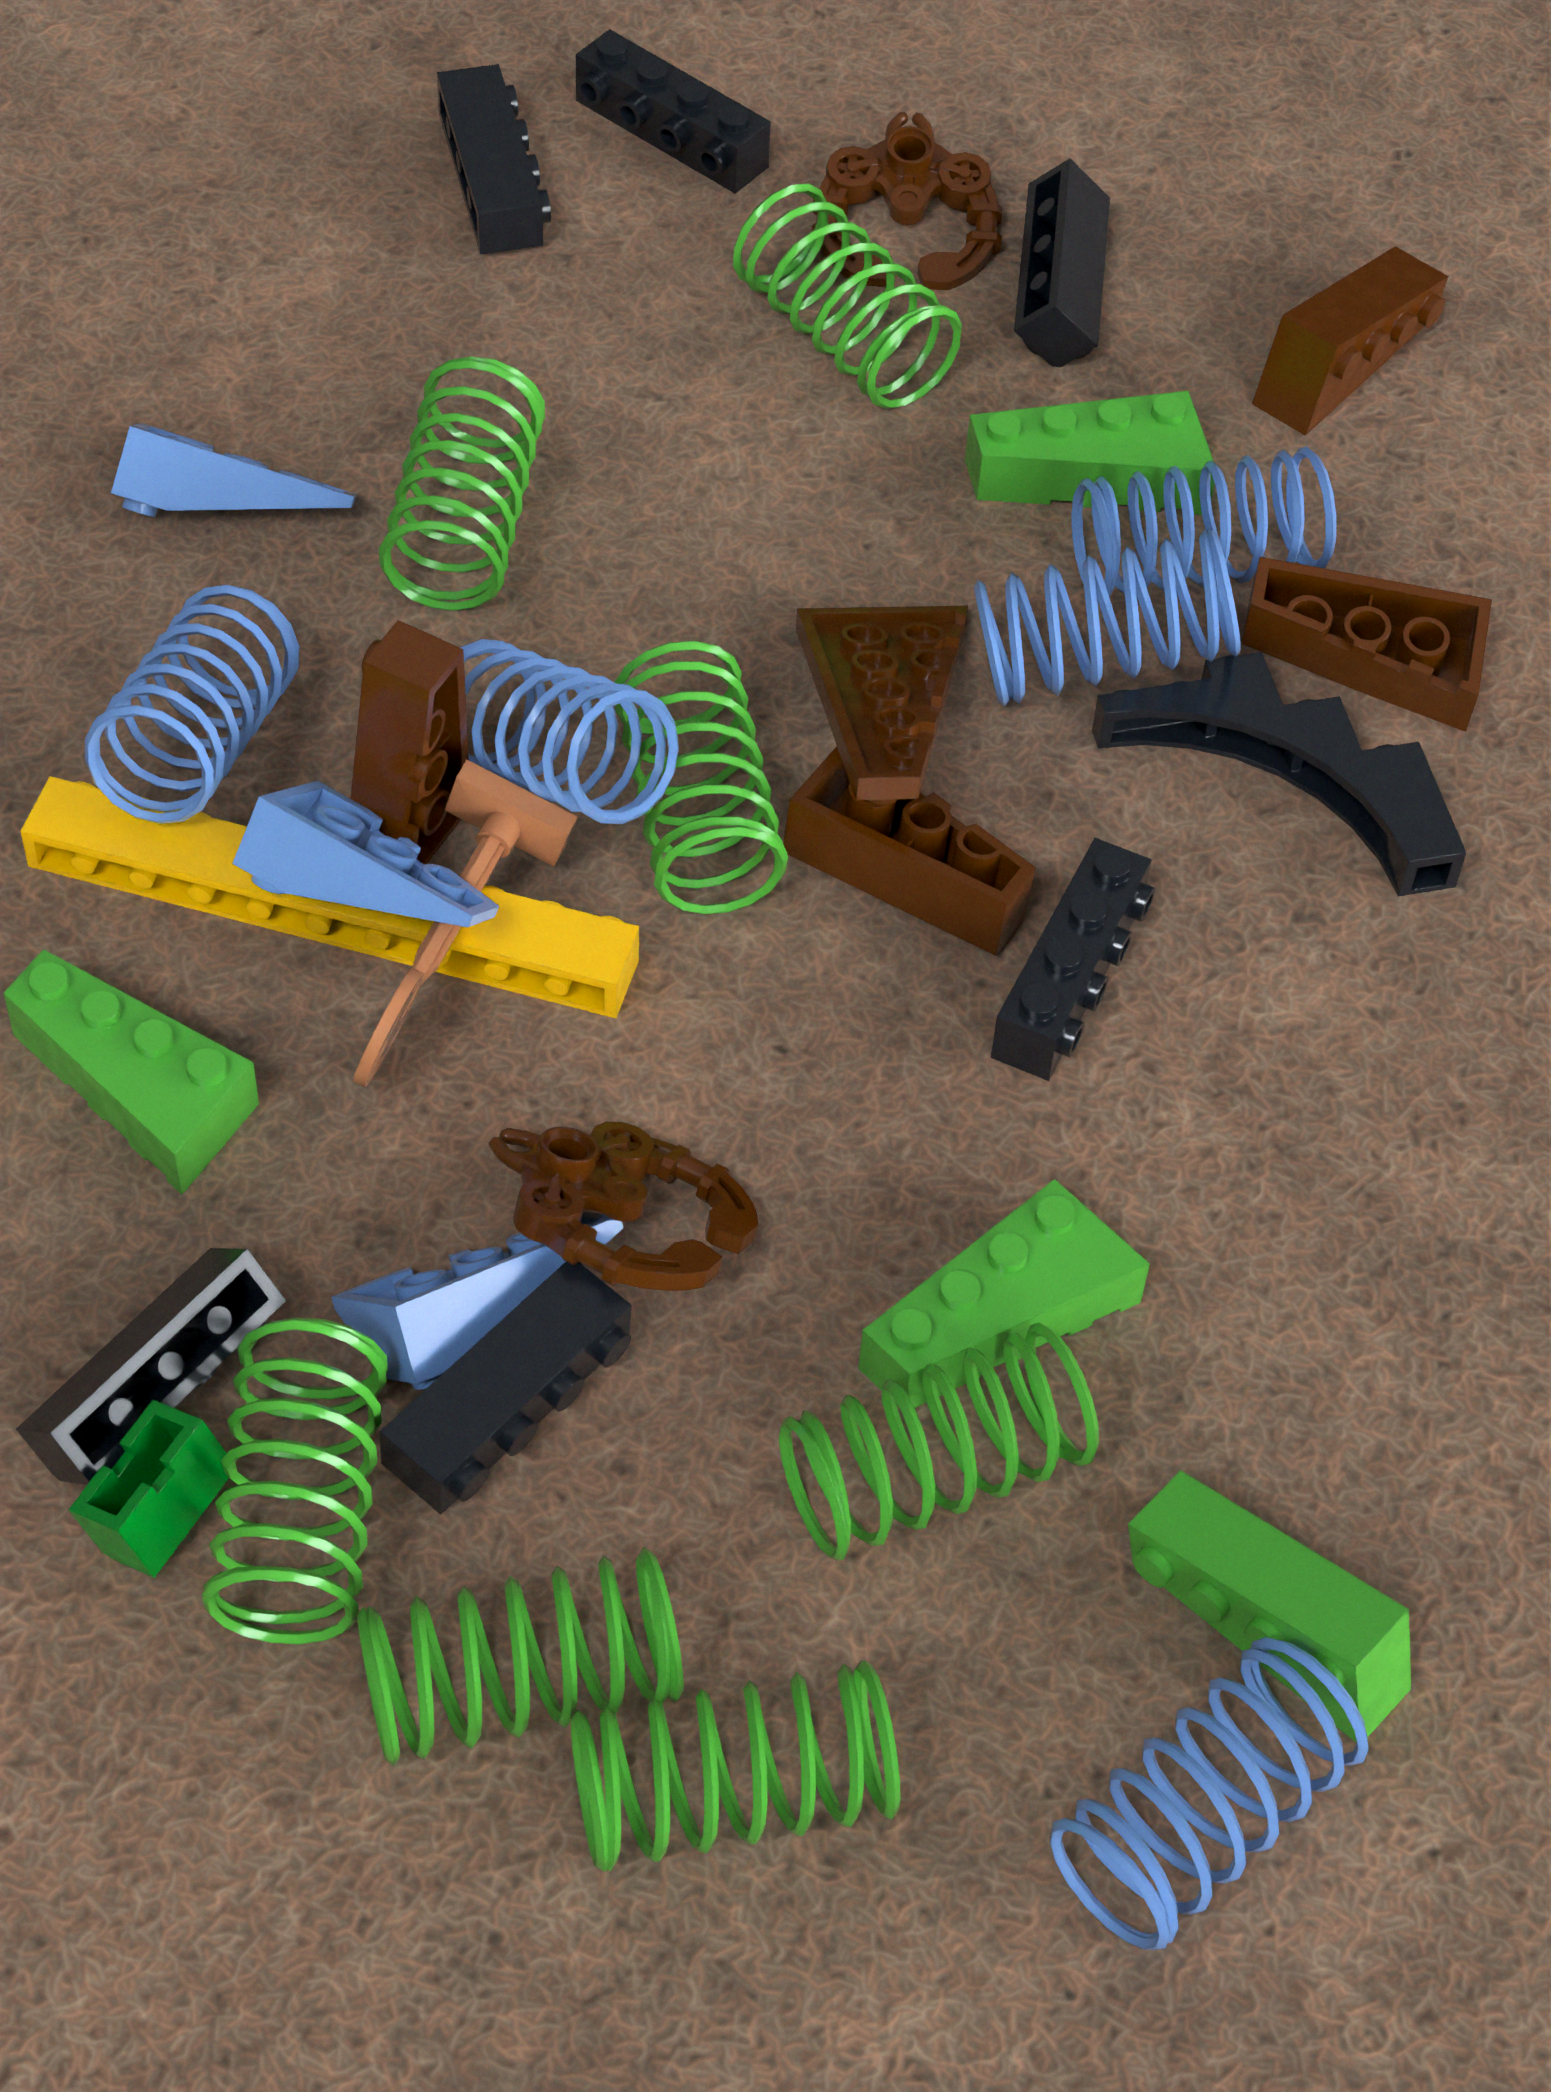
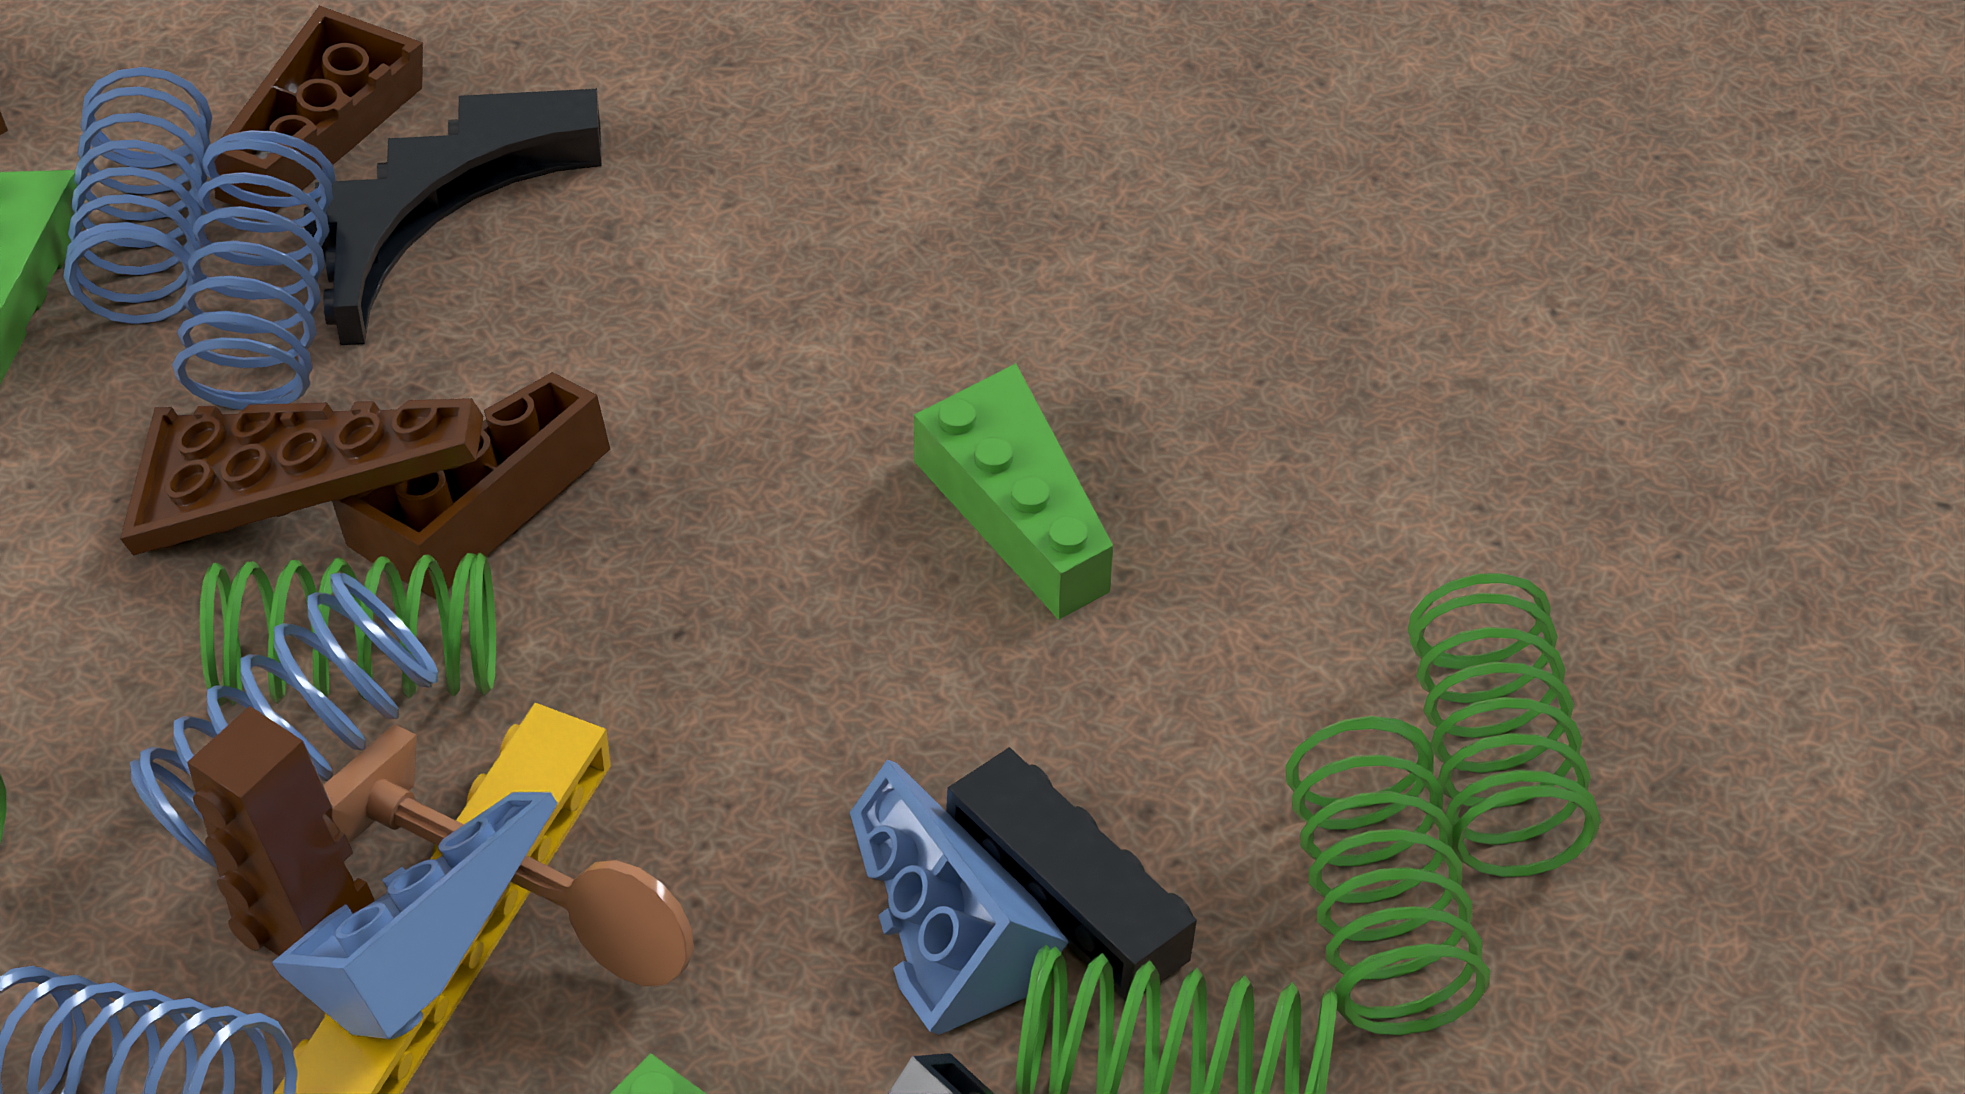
camera: 80 degrees left, 5 degrees down
(604, 1174) = (859, 783): reddish brown piece -> none
(829, 1474) = (1162, 487): bright green piece -> none
(1071, 960) = (643, 383): black brick -> none
(1177, 1810) = (1589, 438): medium blue piece -> none
(1265, 1584) = (1347, 347): bright green wedge -> none

